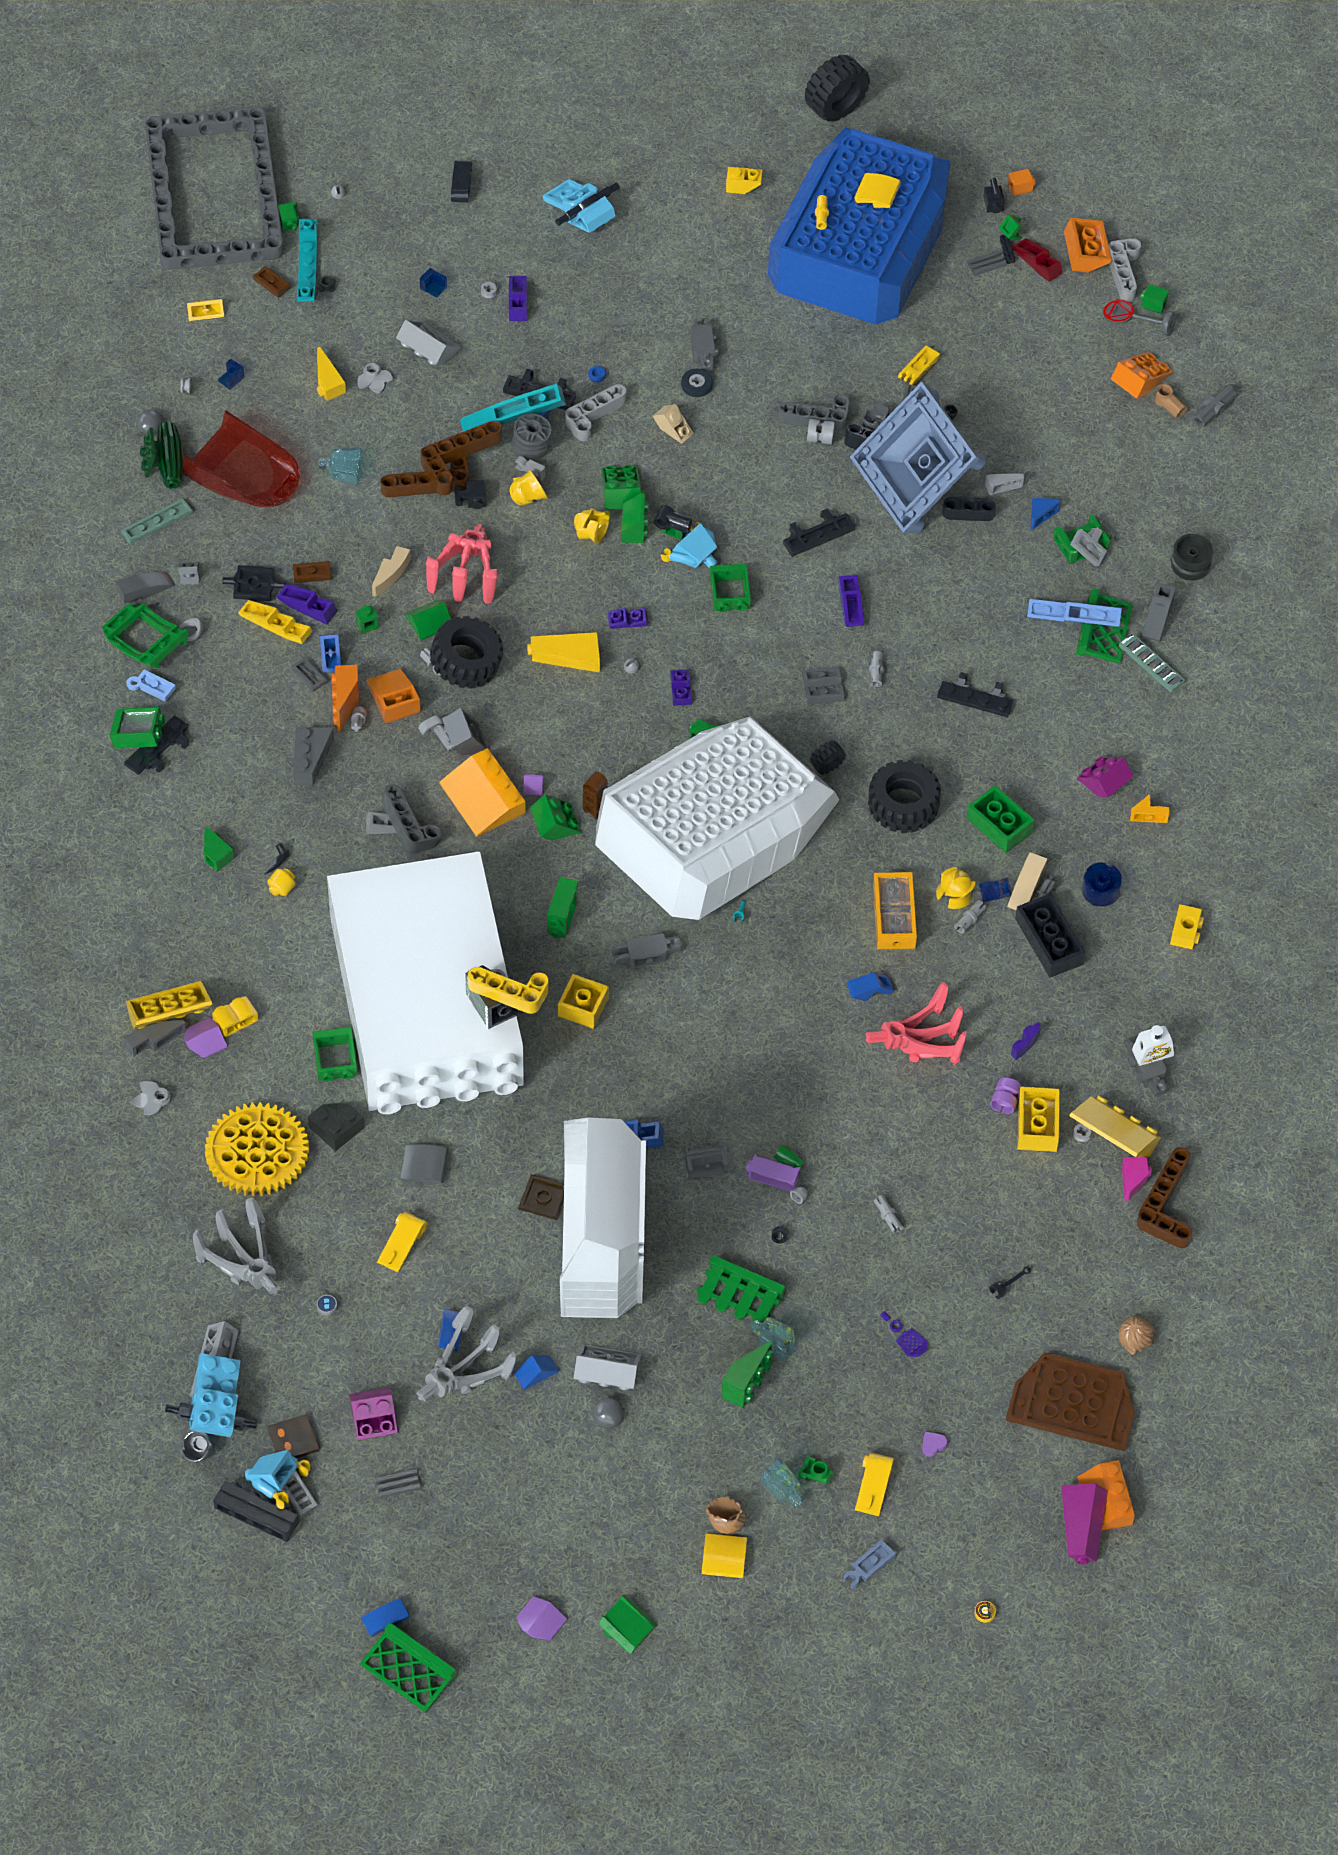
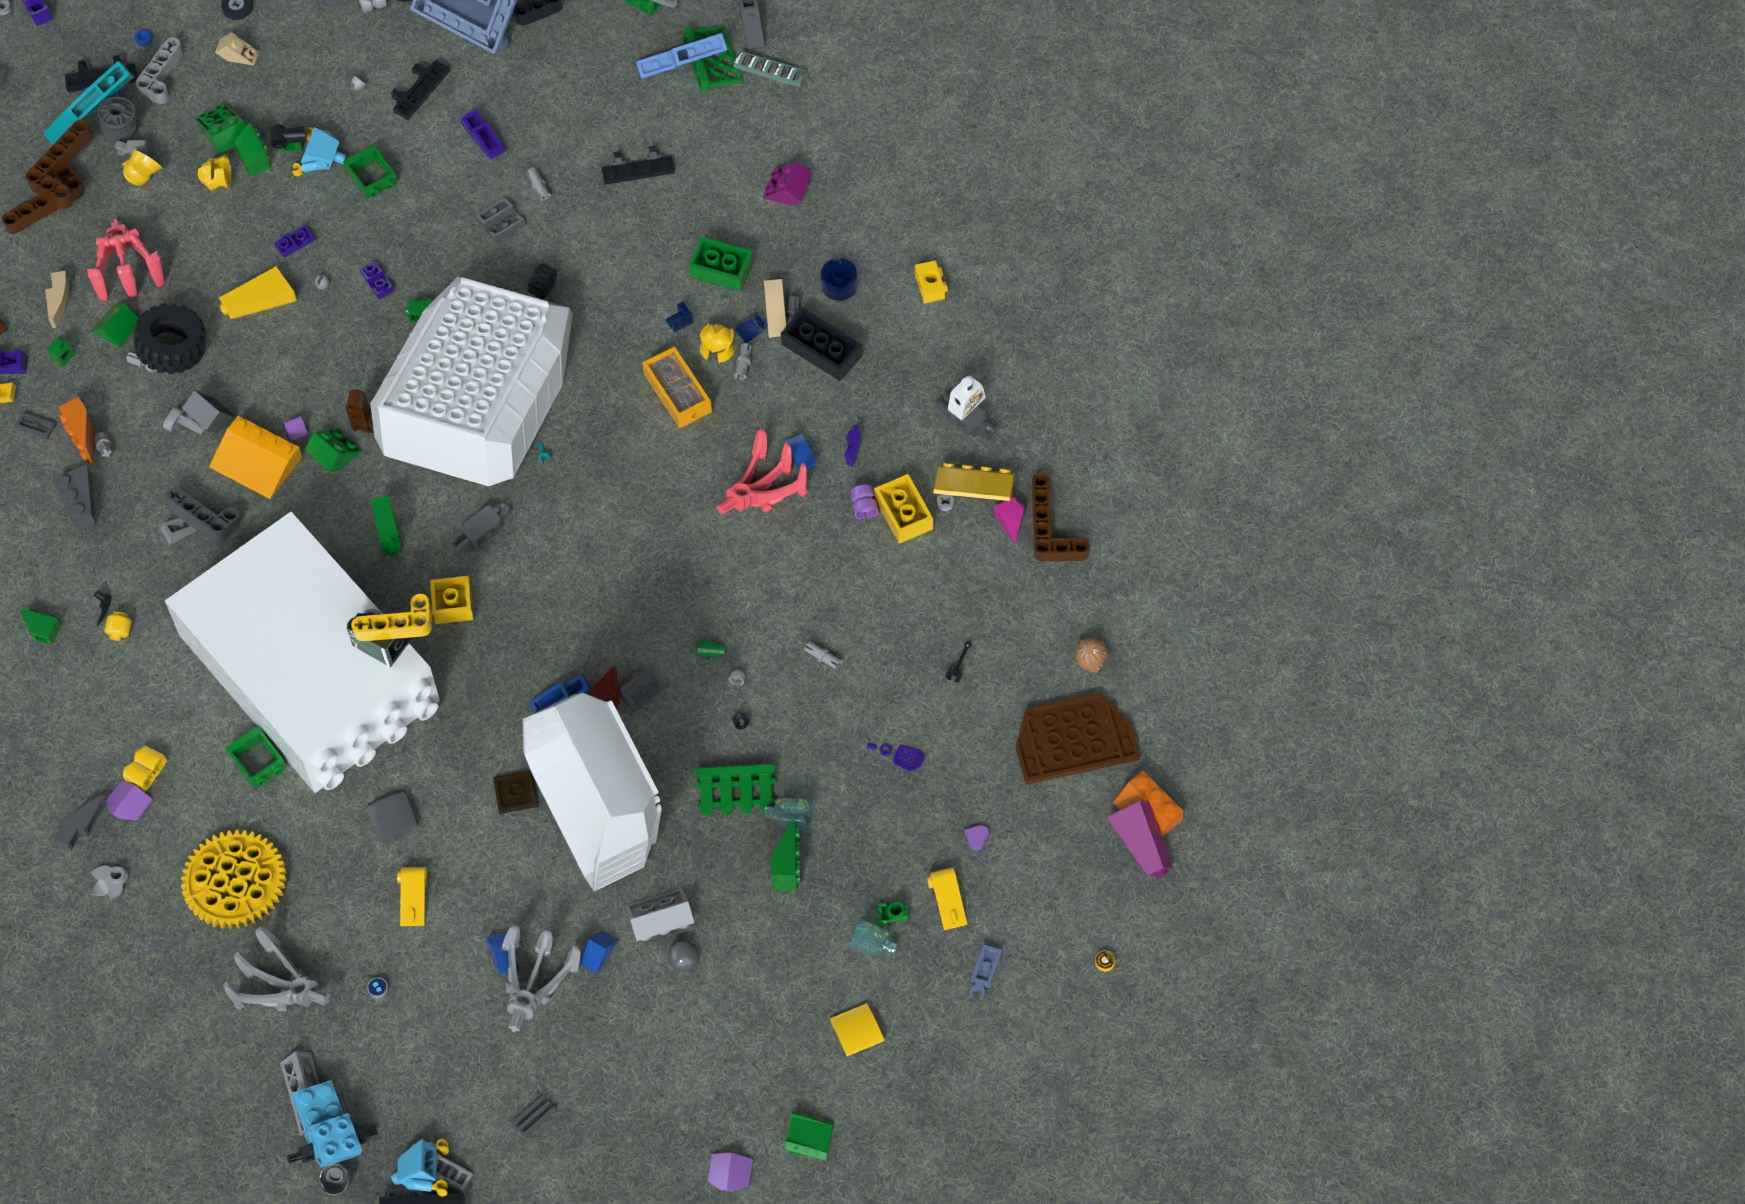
camera: 25 degrees left, 5 degrees up
(168, 1004) = (78, 788): yellow slope -> none
(294, 1436) = (416, 1123): dark brown tile -> none
(330, 652) = (44, 397): blue slope -> none
(336, 1123) = (293, 819): pearl dark grey slope -> none
(373, 1413) = (476, 1064): magenta slope -> none
(394, 695) = (124, 408): orange slope -> none
(474, 494) = (94, 194): black brick -> none
(673, 1148) = (607, 688): none -> clear red slope
(726, 1515) = (839, 993): medium nougat hair -> none
(765, 502) = (357, 83): none -> light grey hinge
(772, 1173) = (704, 669): medium lavender window -> none
(865, 986) = (691, 463): blue slope -> none
(899, 815) = (631, 302): black tyre -> none
(935, 852) = (681, 319): none -> clear blue panel
(974, 1023) = (801, 452): none -> blue slope
(1145, 813) = (839, 200): light orange slope -> none

